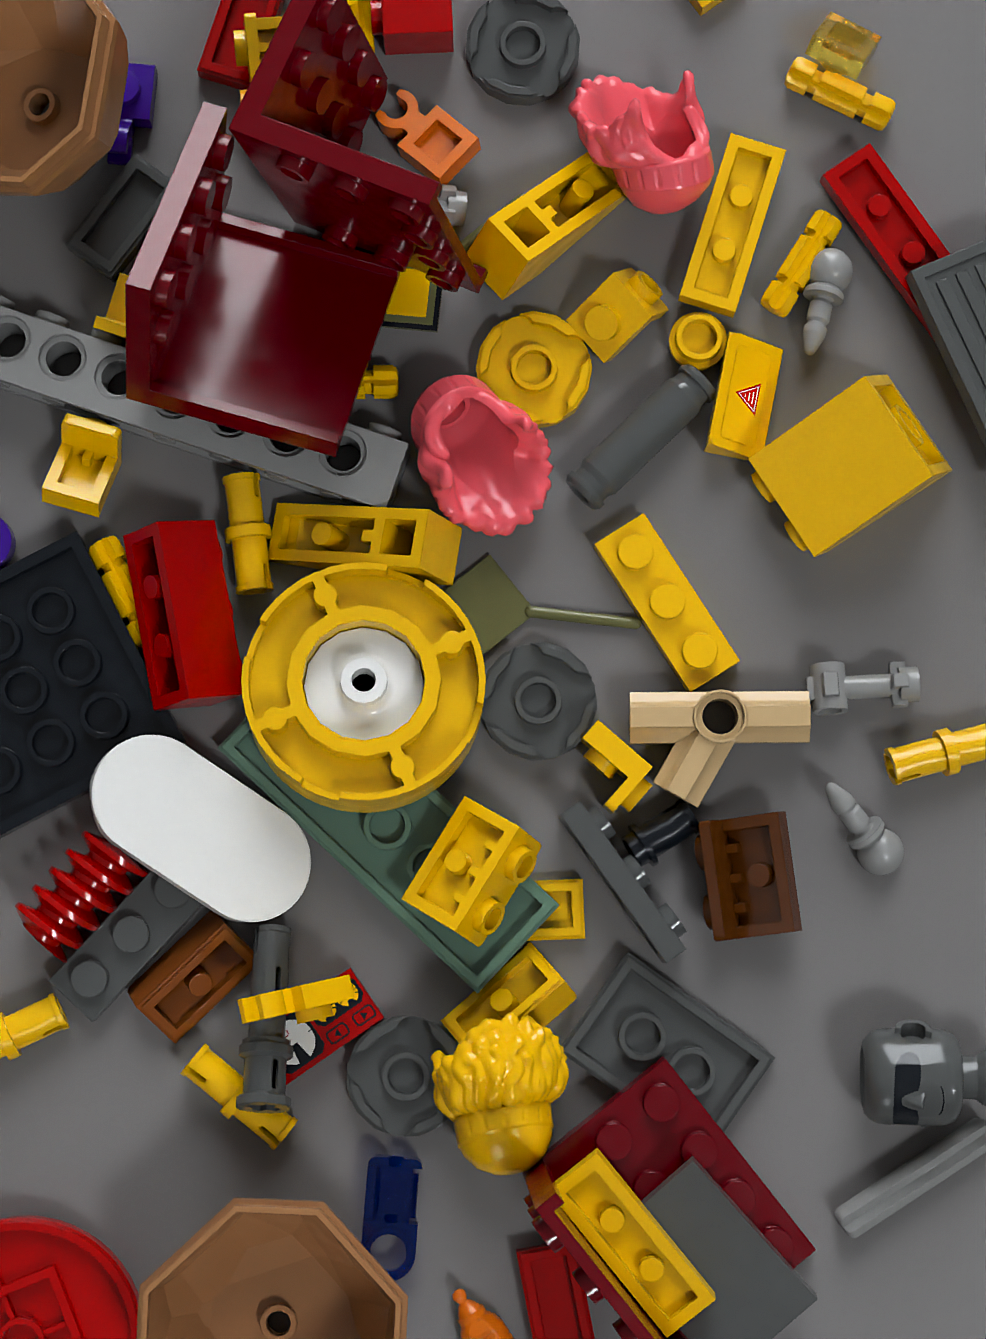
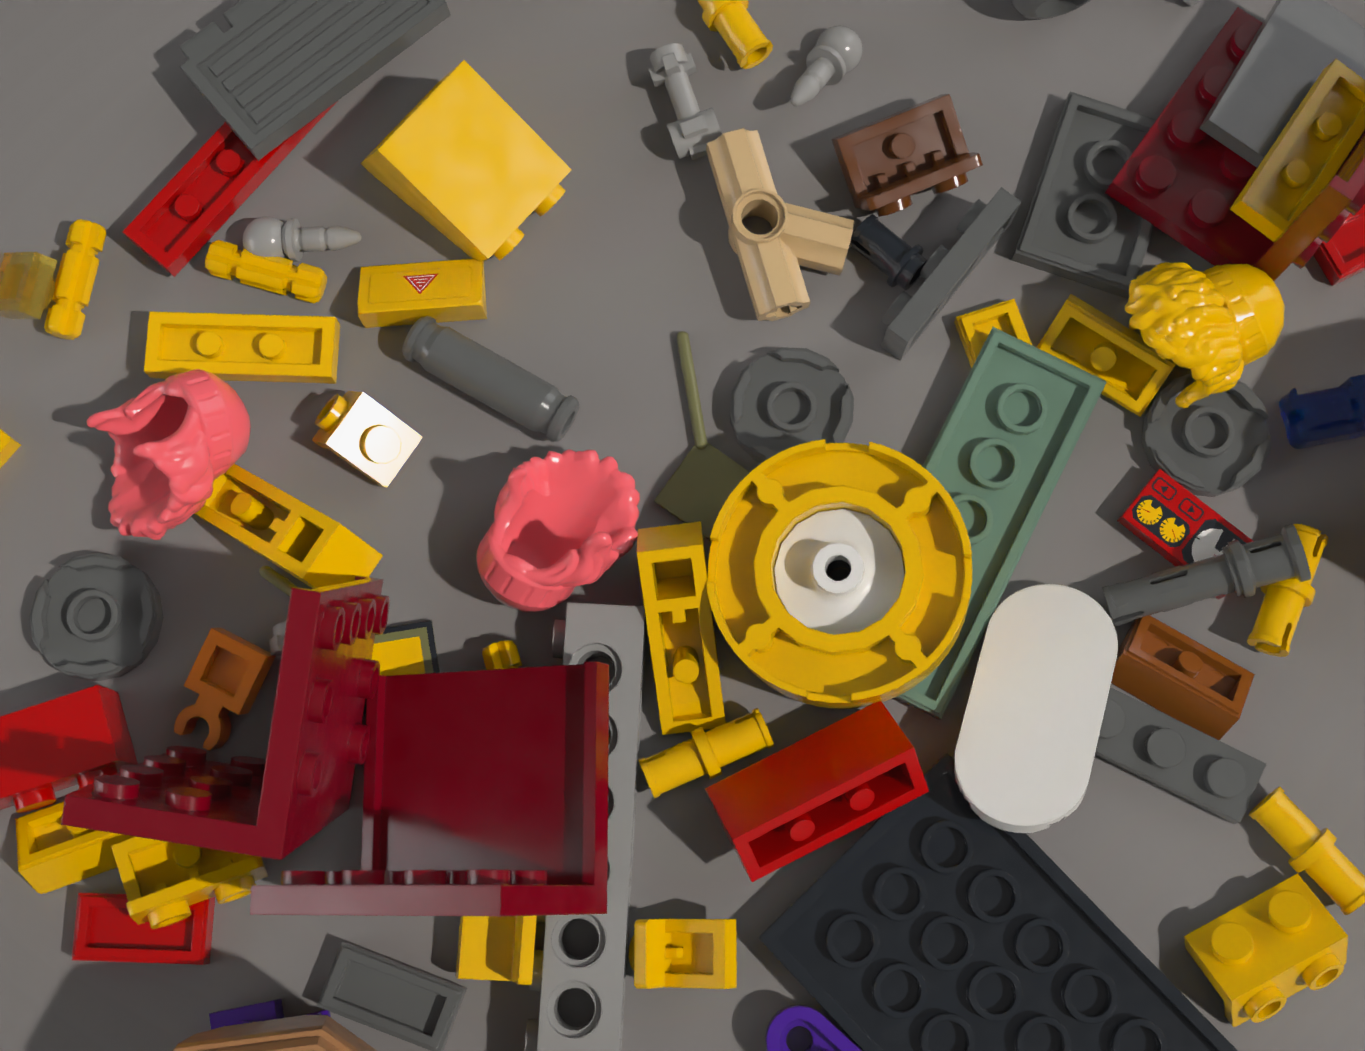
camera: 100 degrees left, 5 degrees down
(78, 893) = (1147, 814): red piece -> none
(110, 557) = (773, 896): yellow axle -> none
(308, 1001) = (1181, 544): yellow plate -> none
(473, 871) = (993, 413): yellow bracket -> none
(536, 366) = (442, 506): yellow tile -> none
(611, 756) = (827, 317): yellow bracket -> none
(666, 603) = (654, 311): yellow plate -> none
(697, 340) = (373, 351): yellow plate -> none

